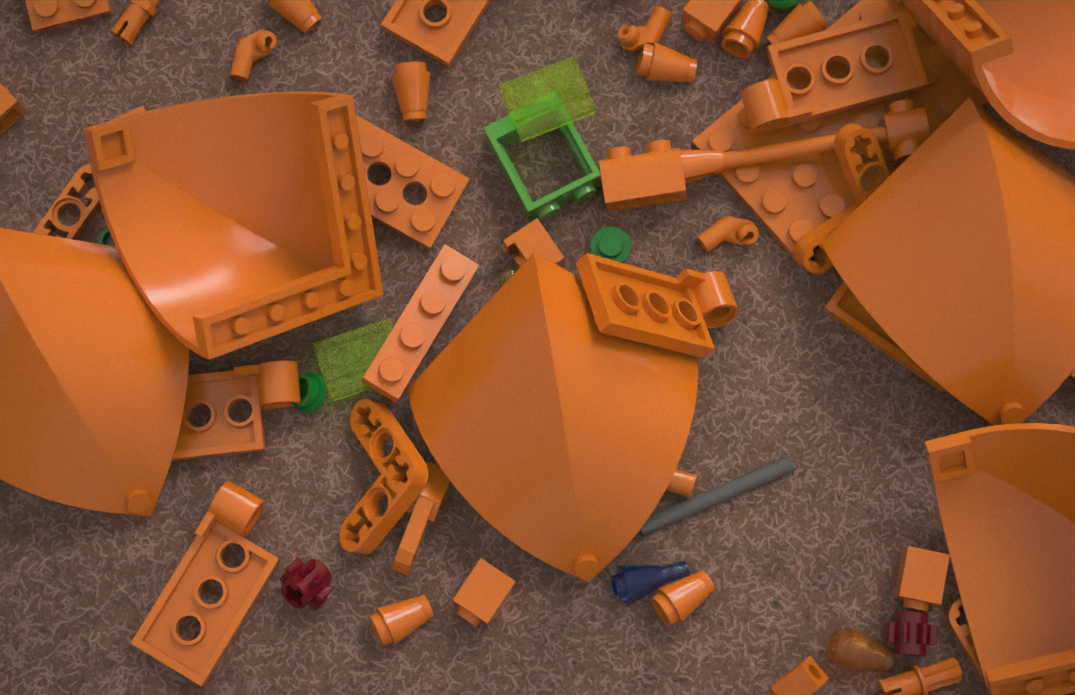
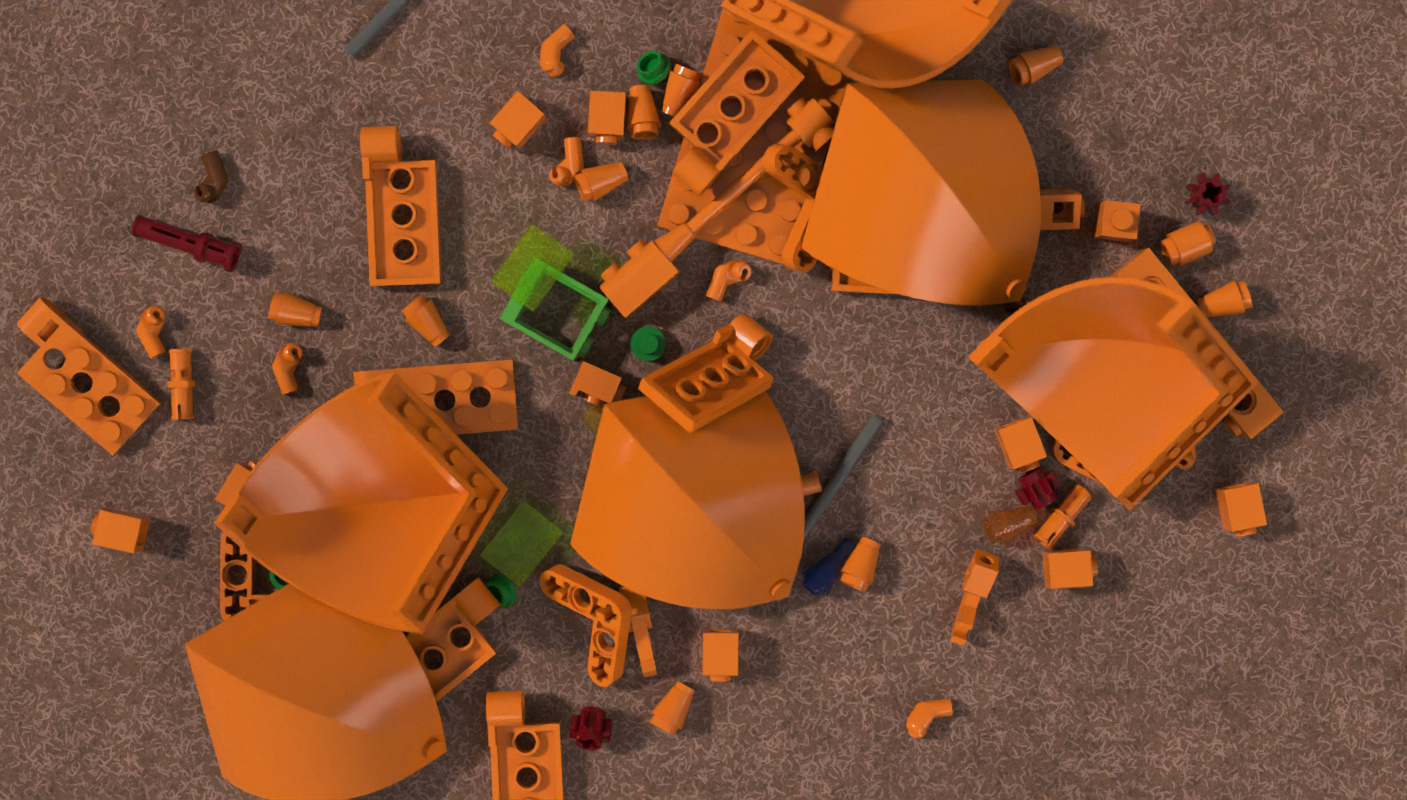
camera: 40 degrees left, 10 degrees up
(419, 323) = (548, 490): orange plate -> none

